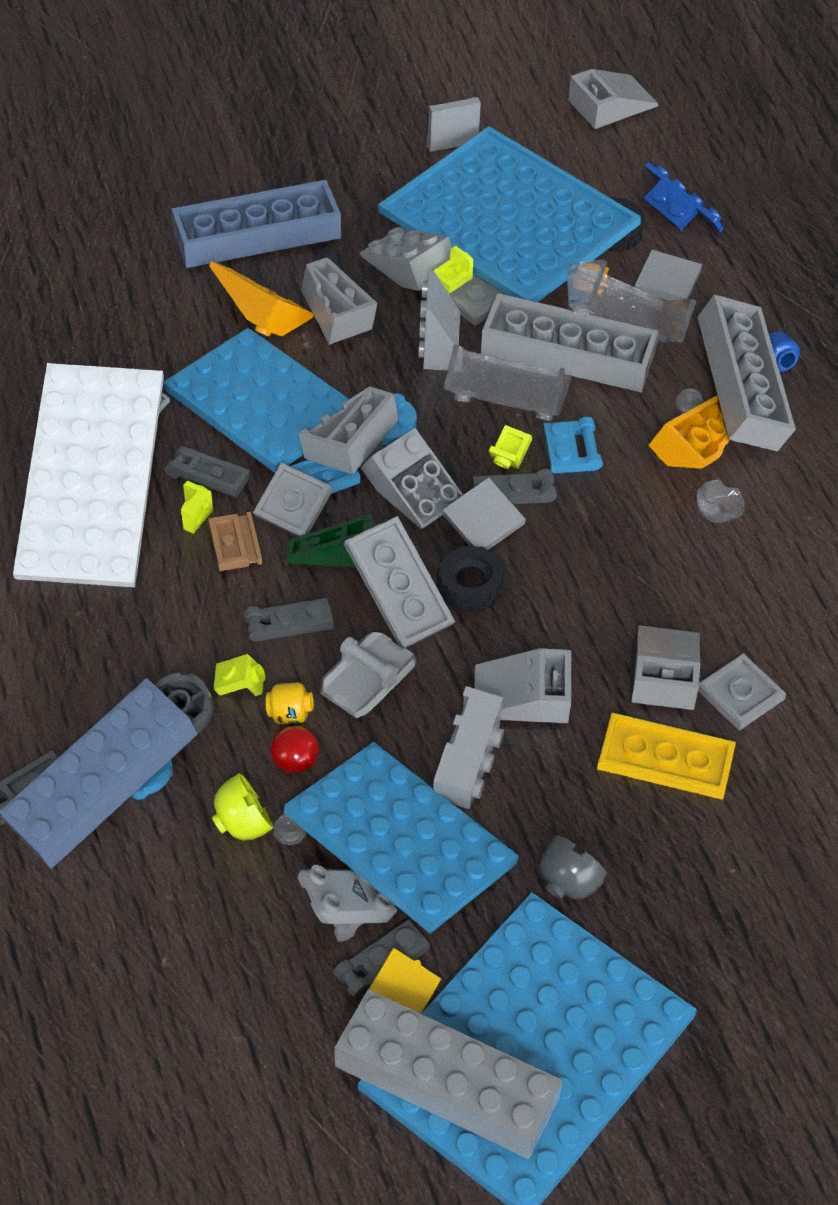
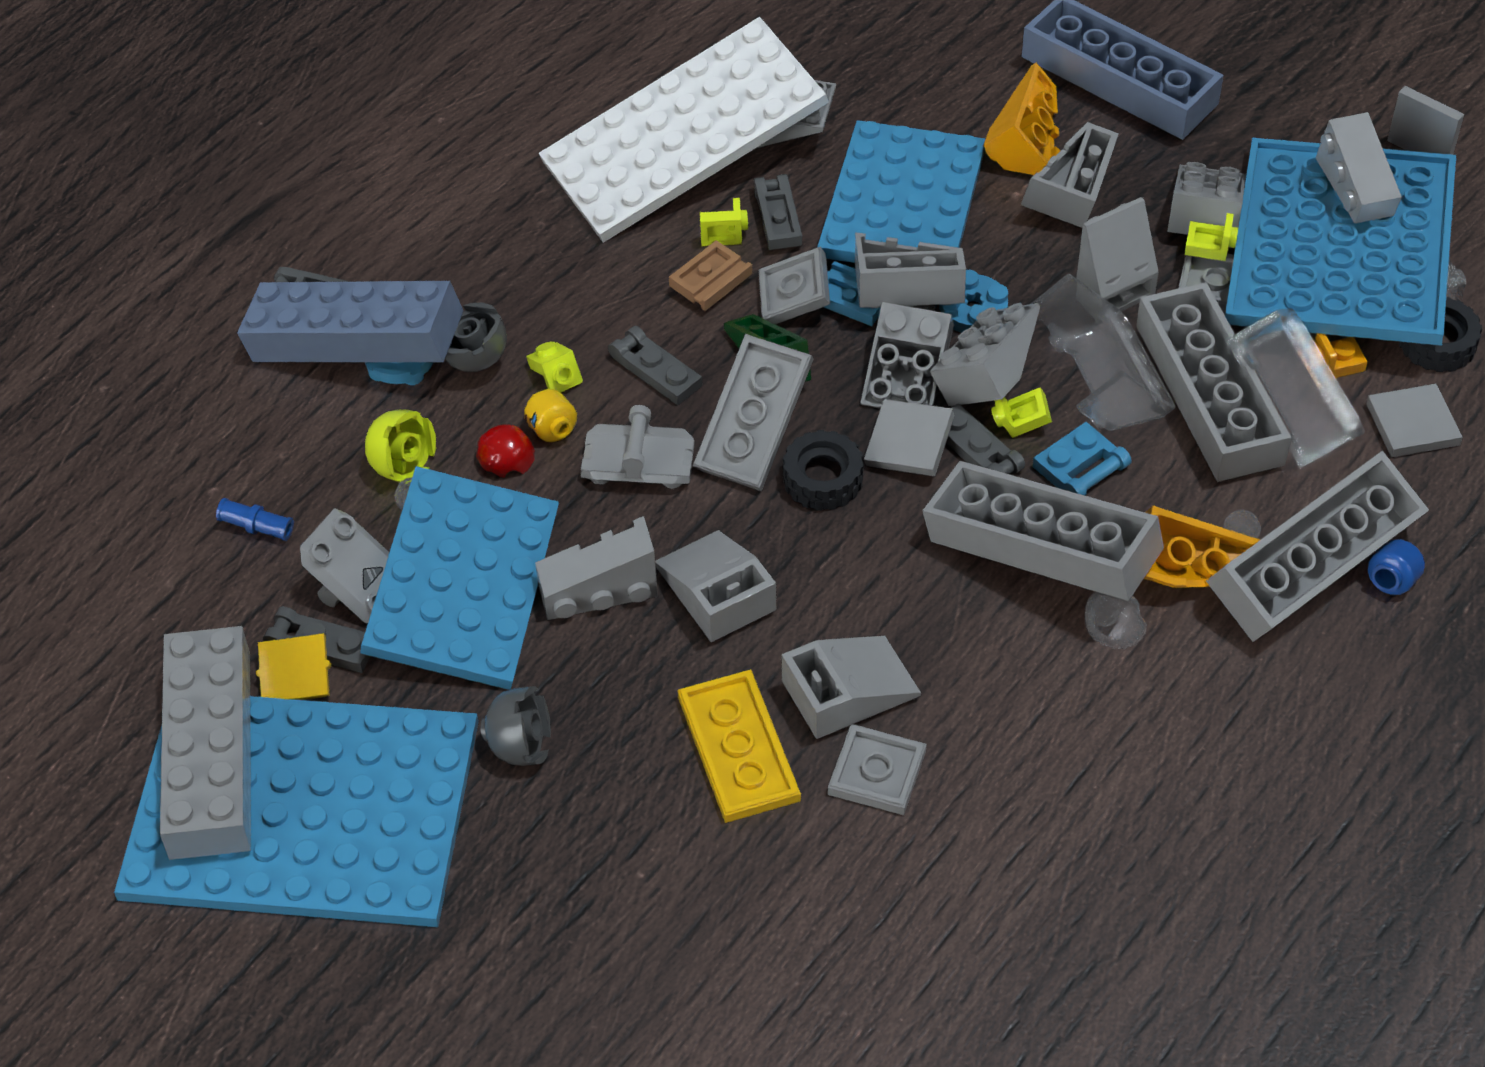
camera: 60 degrees right, 0 degrees up
(228, 943) = (254, 519): none -> blue pin
(459, 431) = (987, 356): none -> light grey slope
(473, 169) = (1358, 168): none -> light grey wedge
(637, 488) = (1044, 530): none -> light grey brick

